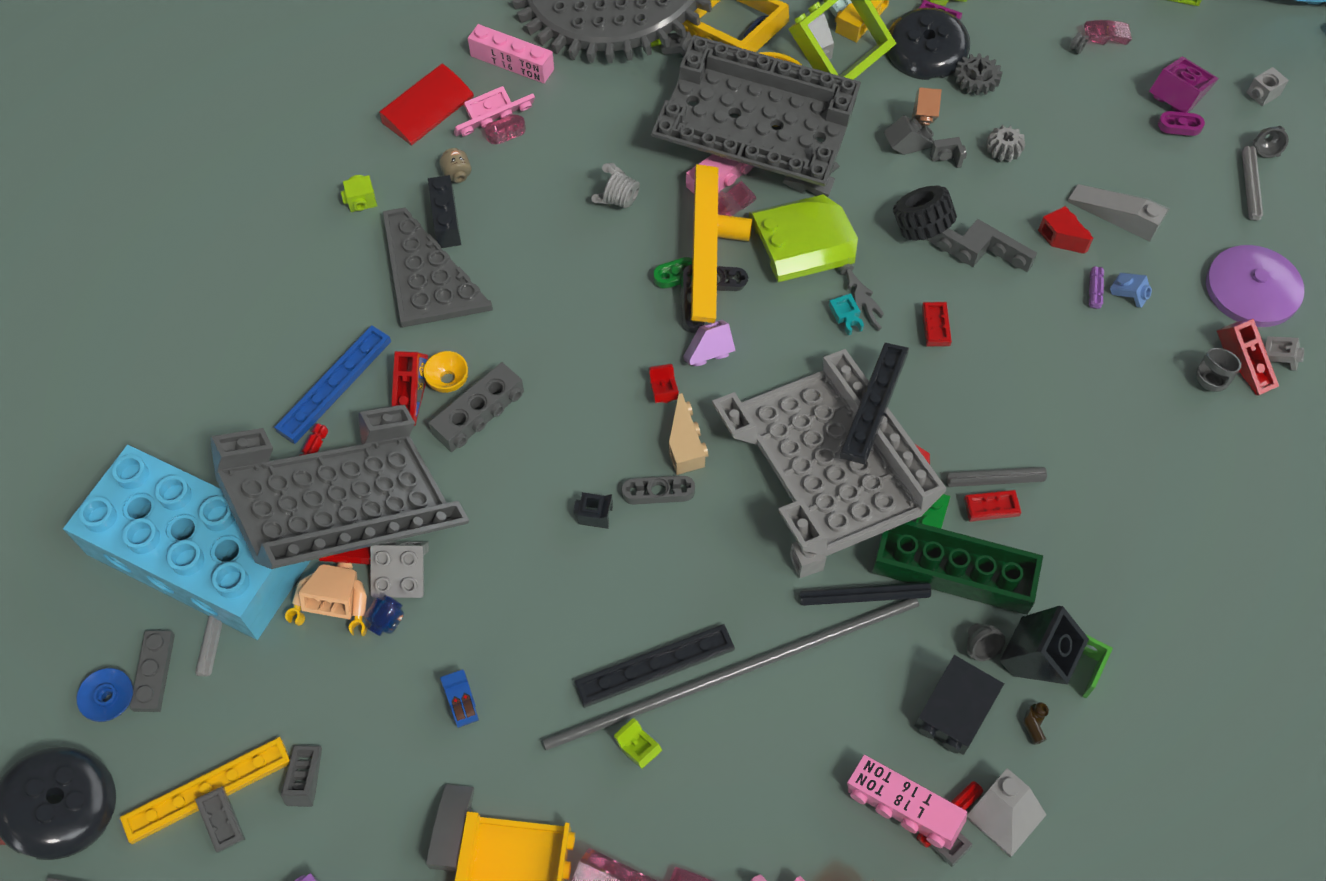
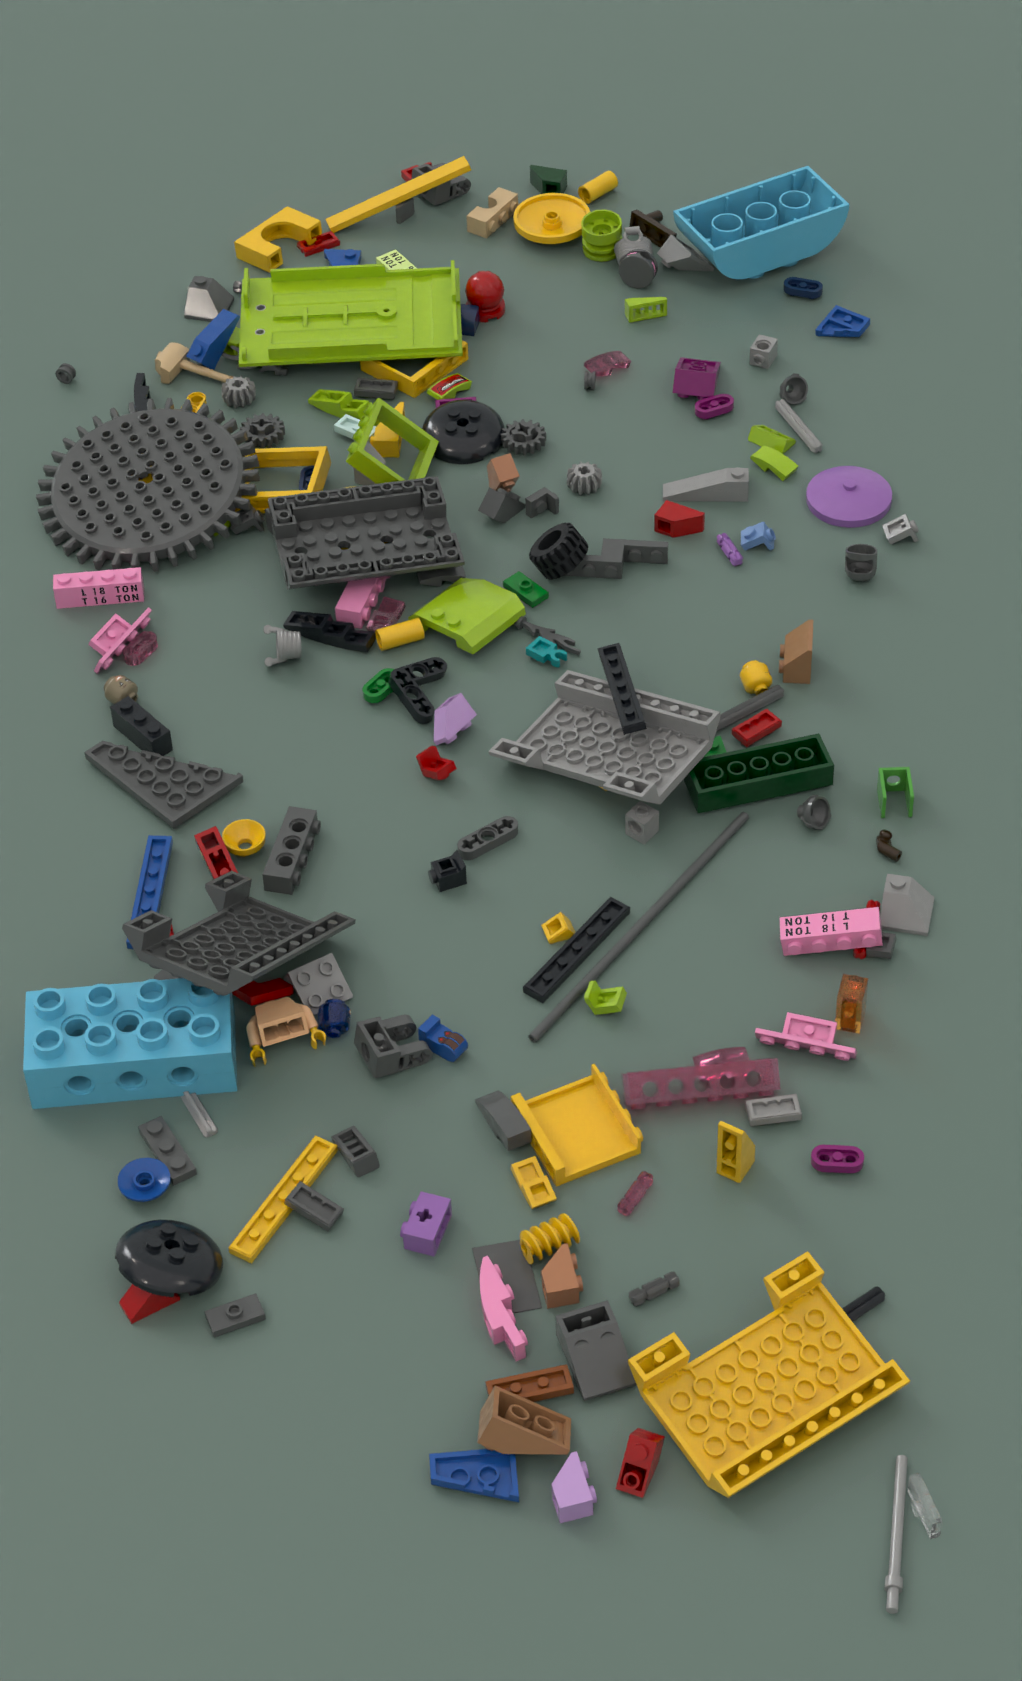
camera: 30 degrees left, 15 degrees down
(358, 193) = (49, 749): lime brick -> none
(393, 675) = (378, 1047): none -> dark grey brick
(426, 104) = (50, 660): red slope -> none
(654, 631) = (558, 928): none -> yellow slope
(668, 189) = (324, 630): none -> black slope
(684, 444) = (485, 796): tan slope -> none
(705, 244) = (394, 648): yellow tile -> none
(865, 593) = (703, 826): black axle -> none
(875, 235) = (526, 589): none -> green plate
(936, 324) = (623, 628): red plate -> none
(958, 705) = (825, 855): black slope -> none
(1027, 448) = (755, 677): none -> yellow head
(1045, 646) = (860, 787): black slope -> none
(1084, 445) = (797, 654): none -> medium nougat slope
(1203, 212) = (774, 460): none -> lime slope
(1215, 184) = (769, 437): none -> lime slope
(1246, 343) = (868, 532): red slope -> none

